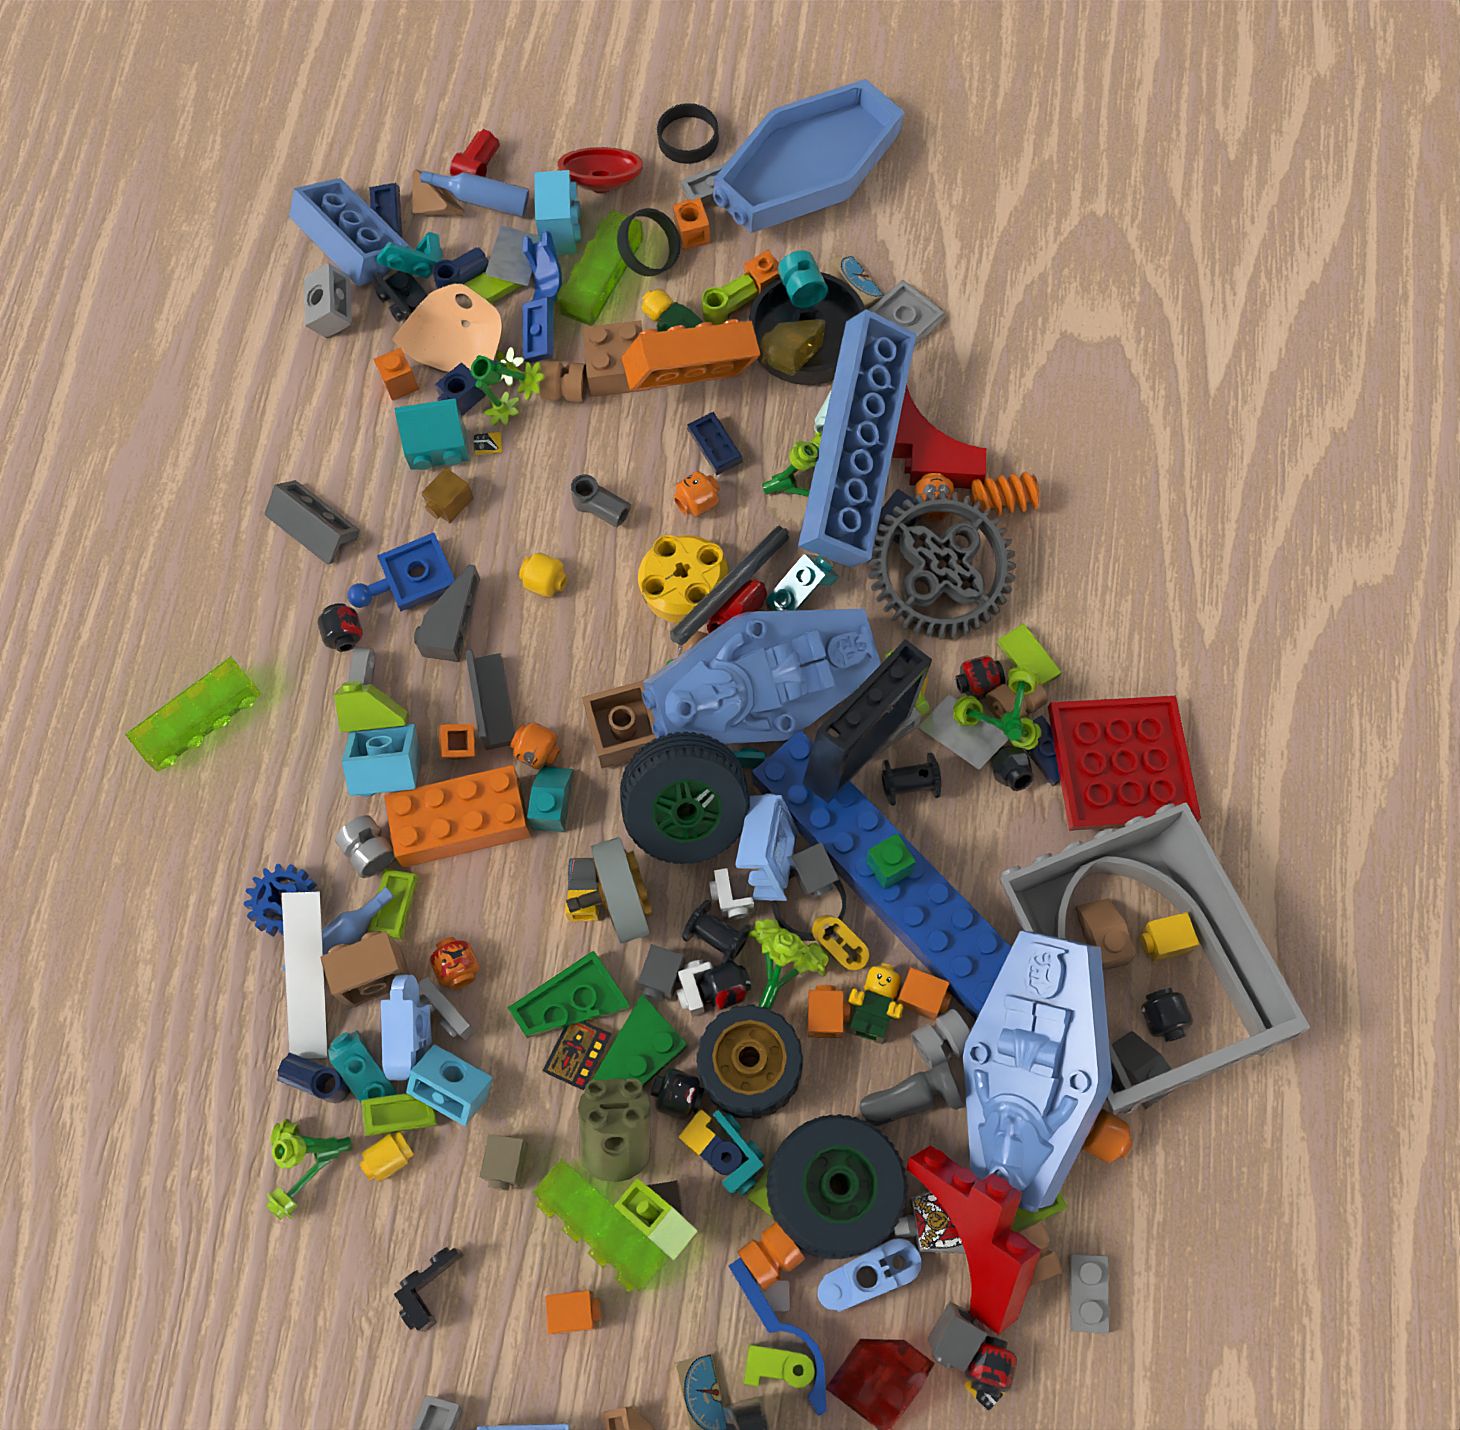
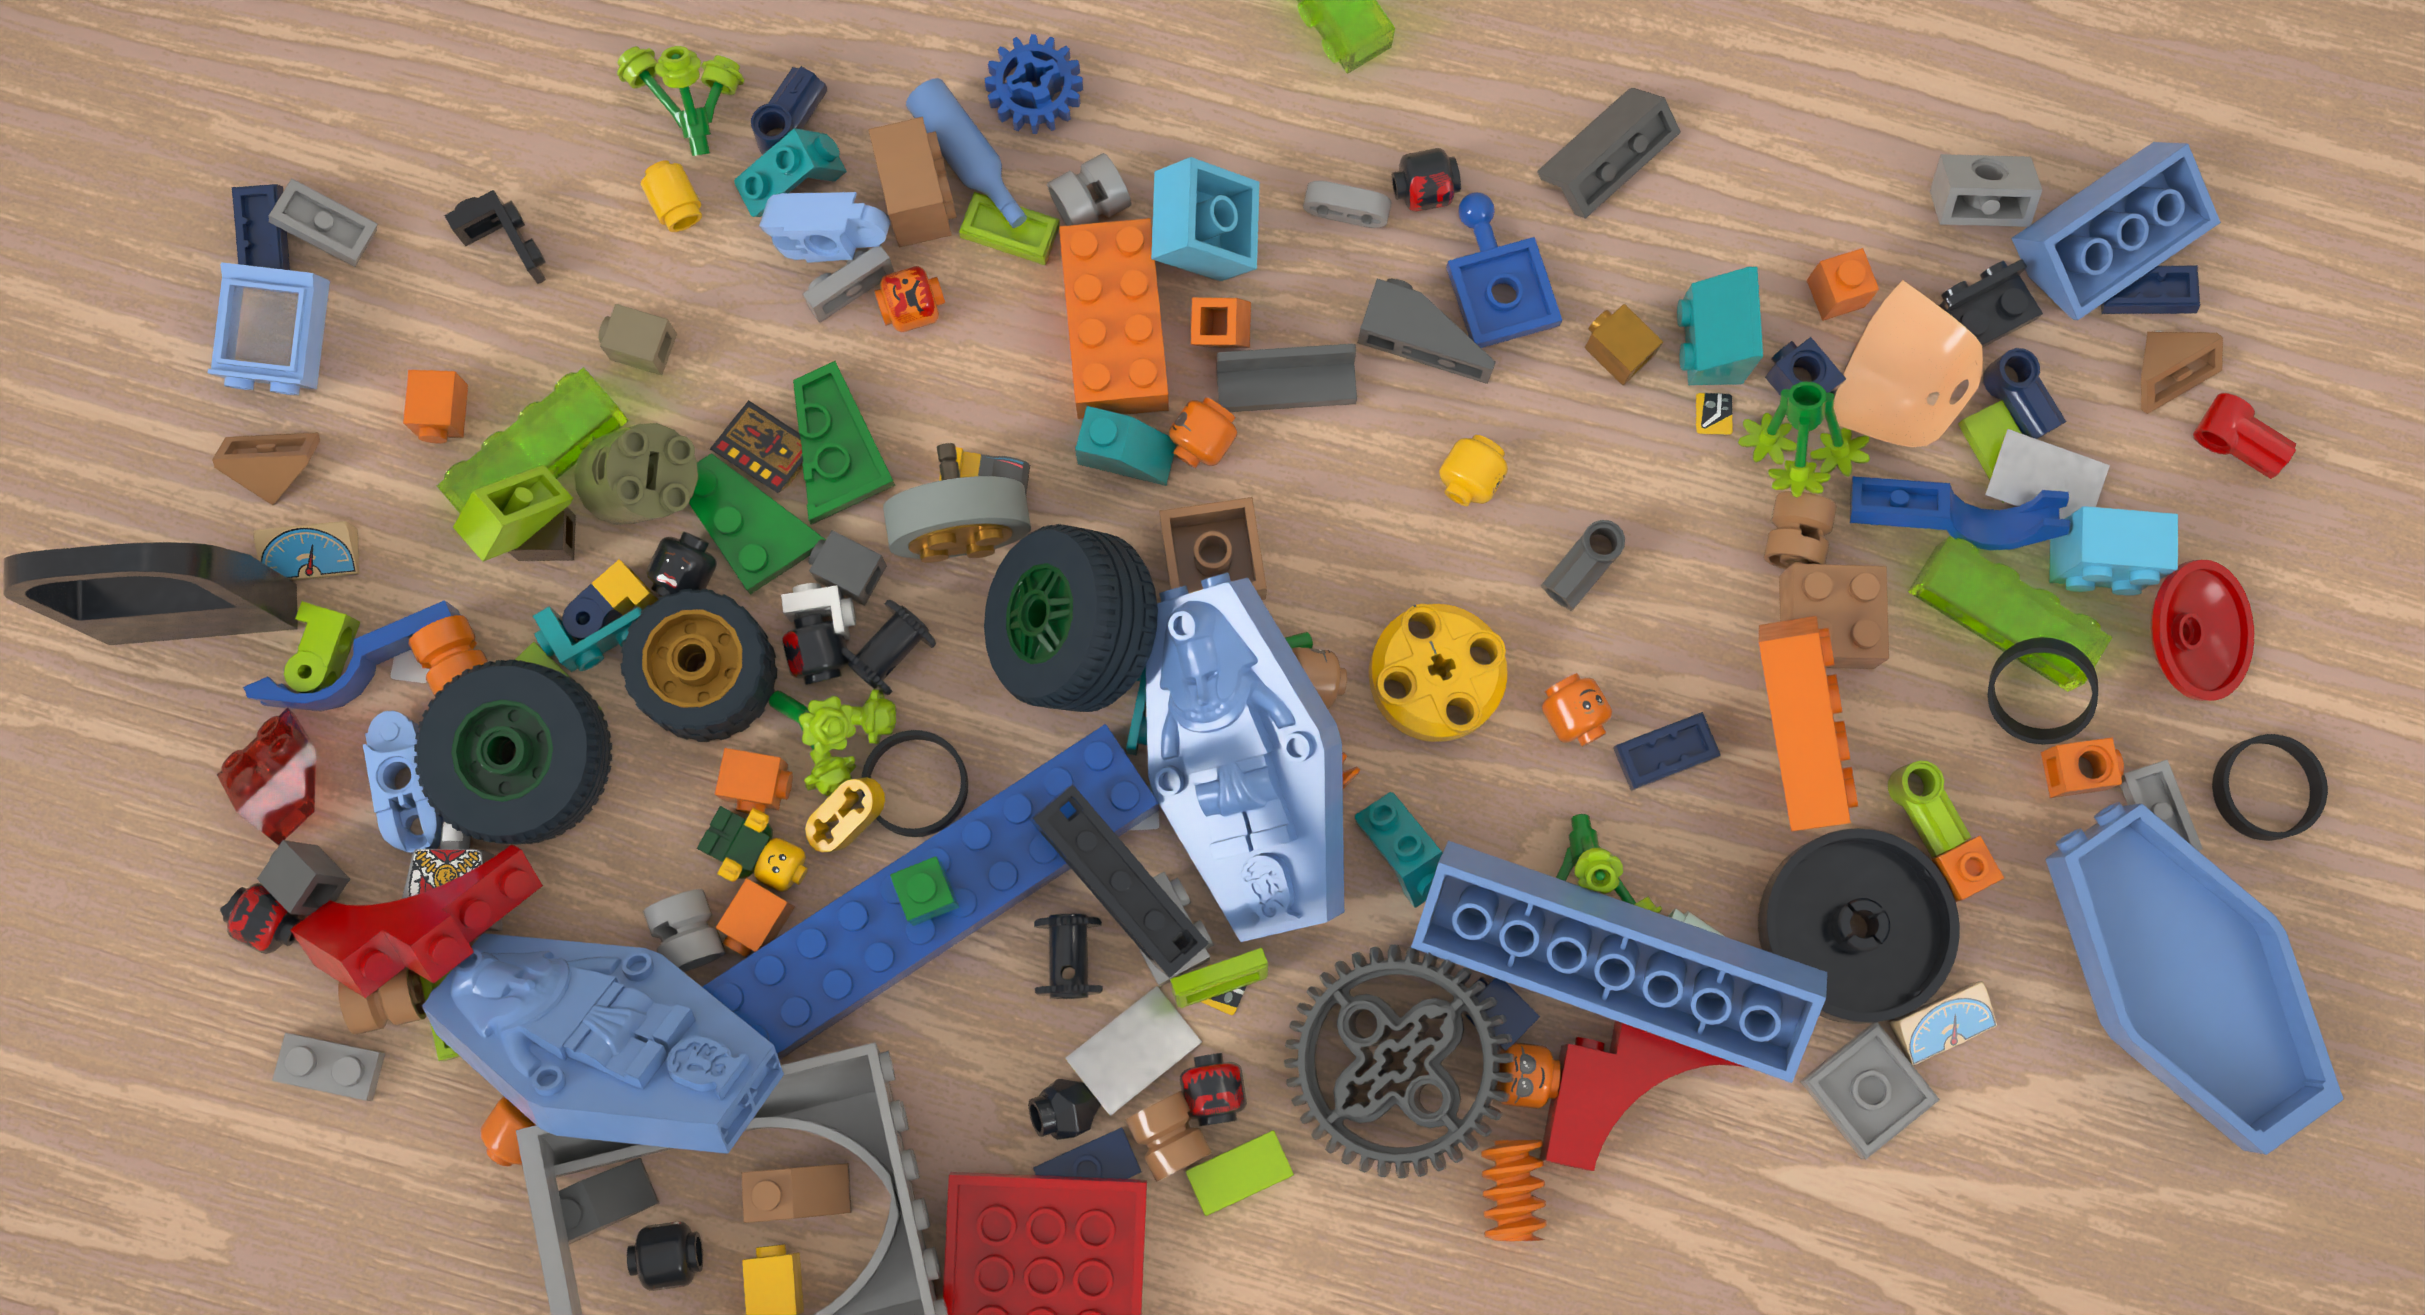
camera: 90 degrees right, 10 degrees up
(304, 974) = (936, 100): white sticker -> none
(366, 708) = (1285, 206): lime slope -> none
(395, 1114) = (723, 214): lime tile -> none
(417, 261) = (2052, 348): teal bracket -> none
(449, 1084) = (720, 287): medium azure brick -> none
(482, 191) = (2170, 439): medium blue piece -> none
(666, 312) = (1895, 712): piece -> none
(721, 892) = (947, 664): white bracket -> none
(728, 586) = (1407, 734): dark grey axle -> none
(747, 599) = (1374, 745): red piece -> none
(765, 844) = (987, 727): light blue window -> none
(792, 344) = (1812, 888): clear yellow slope -> none
(802, 279) = (1928, 921): teal wheel -> none
(813, 869) = (945, 787): dark grey brick -> none
(912, 1096) = (615, 879): dark grey piece -> none
(1019, 730) = (1109, 1123): lime plant -> none

